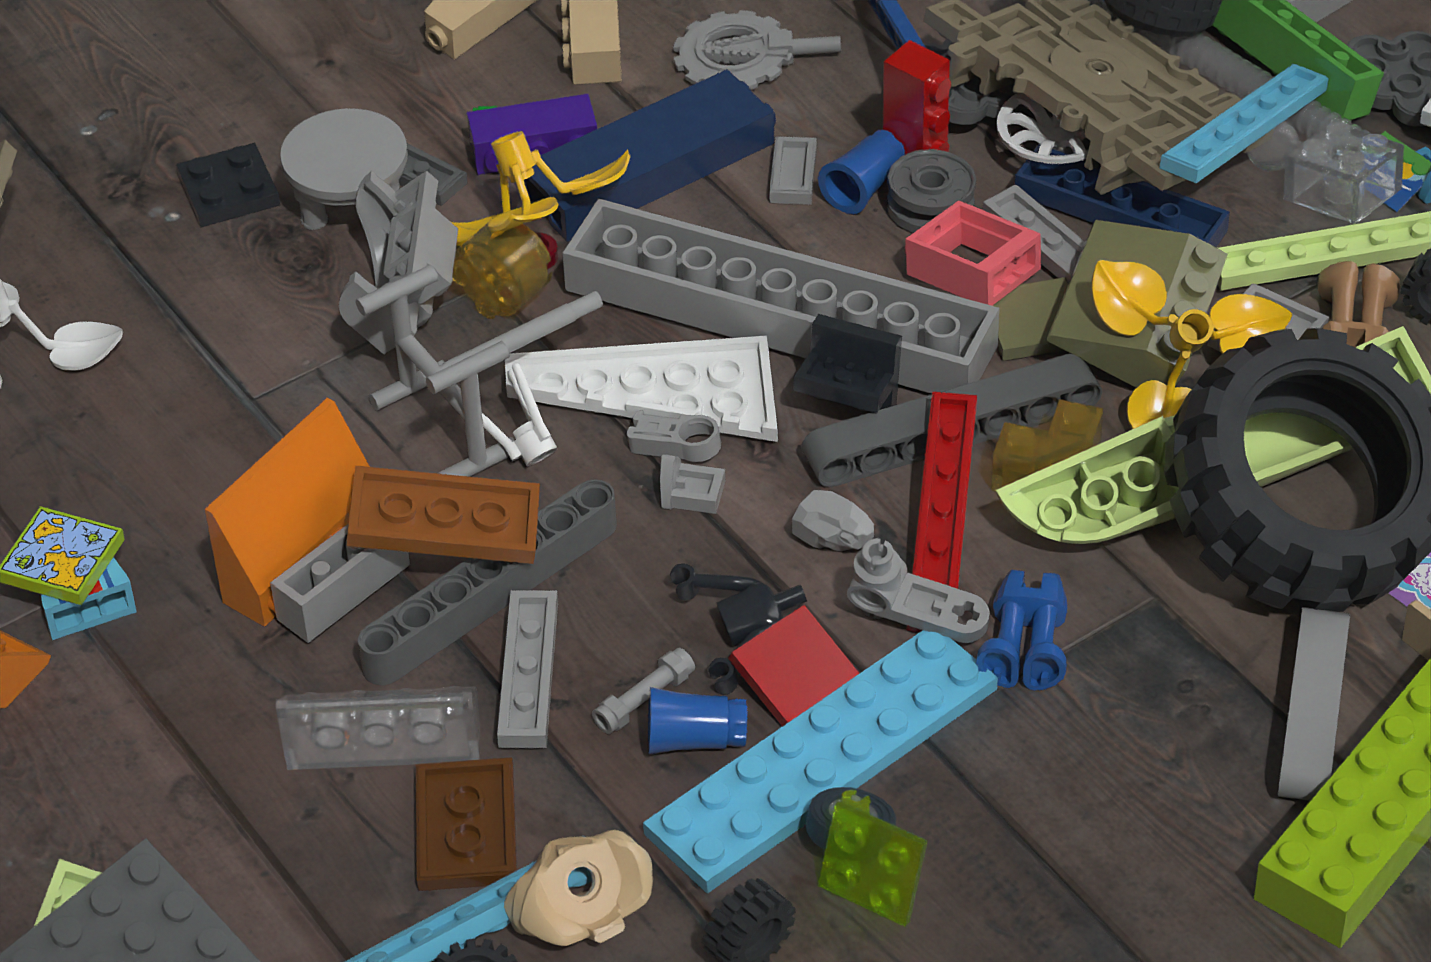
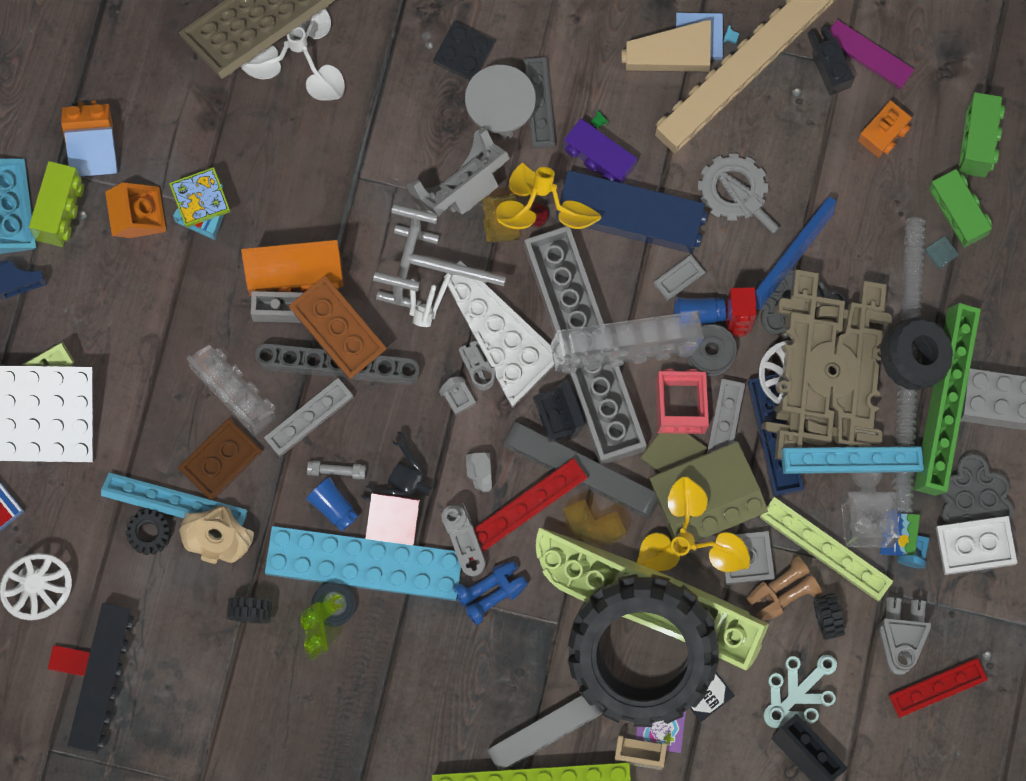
camera: 45 degrees right, 30 degrees up
(832, 216) = (626, 342): none -> clear brick

